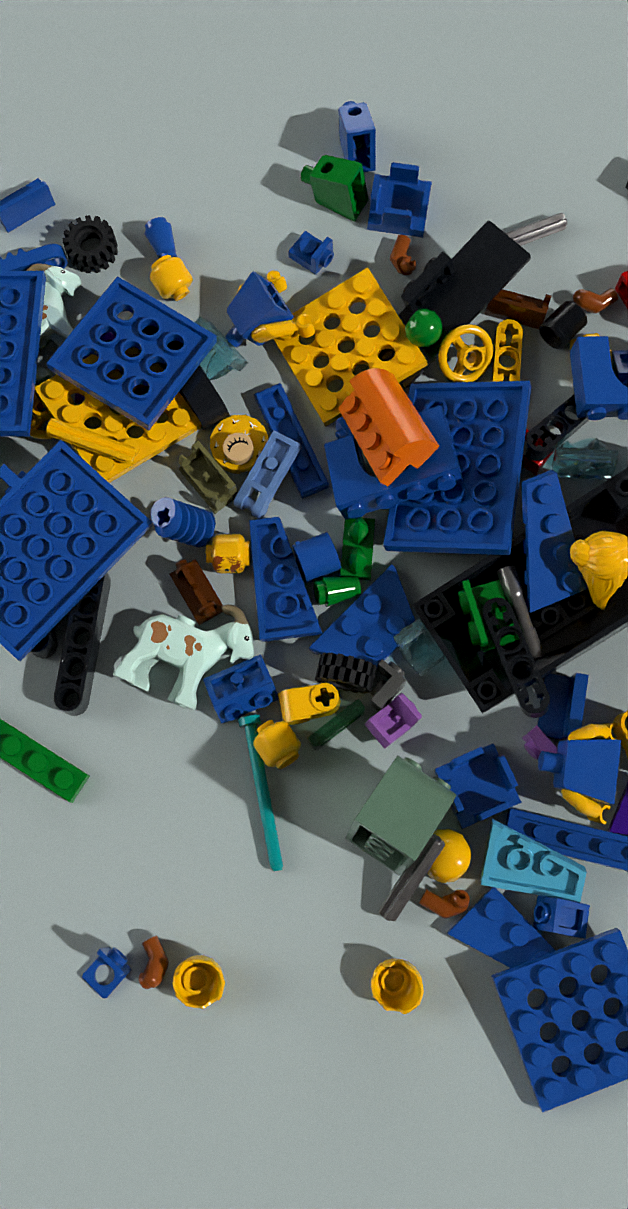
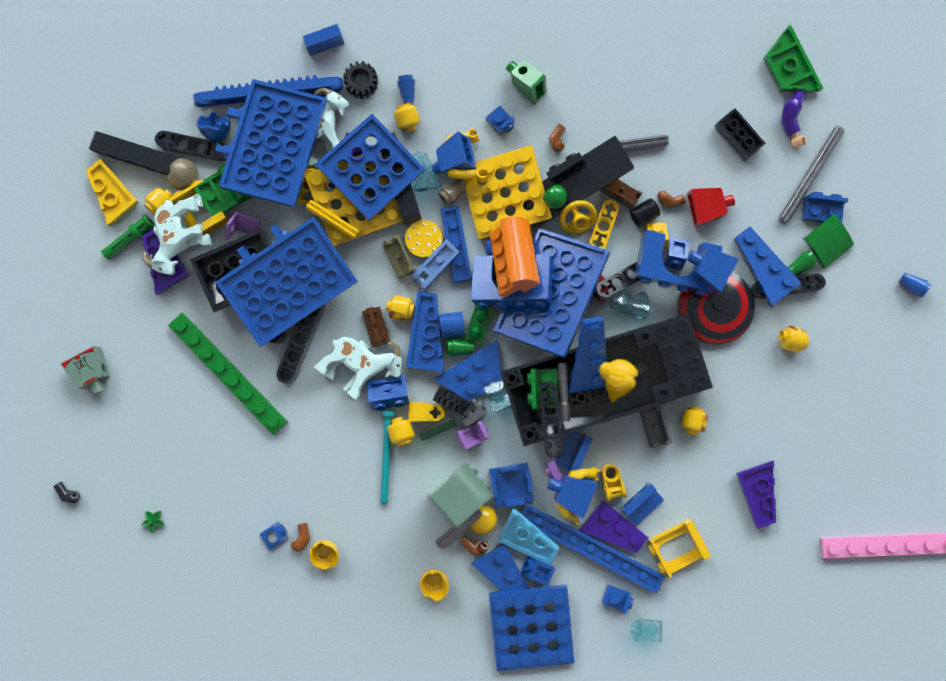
camera: 10 degrees right, 10 degrees up
(182, 522) = (376, 285): blue piece -> none
(238, 448) = (421, 243): tan tile -> none
(265, 366) = (451, 192): none -> dark tan cone
(357, 124) = (550, 48): blue torso -> none
(399, 201) = (565, 100): blue panel -> none

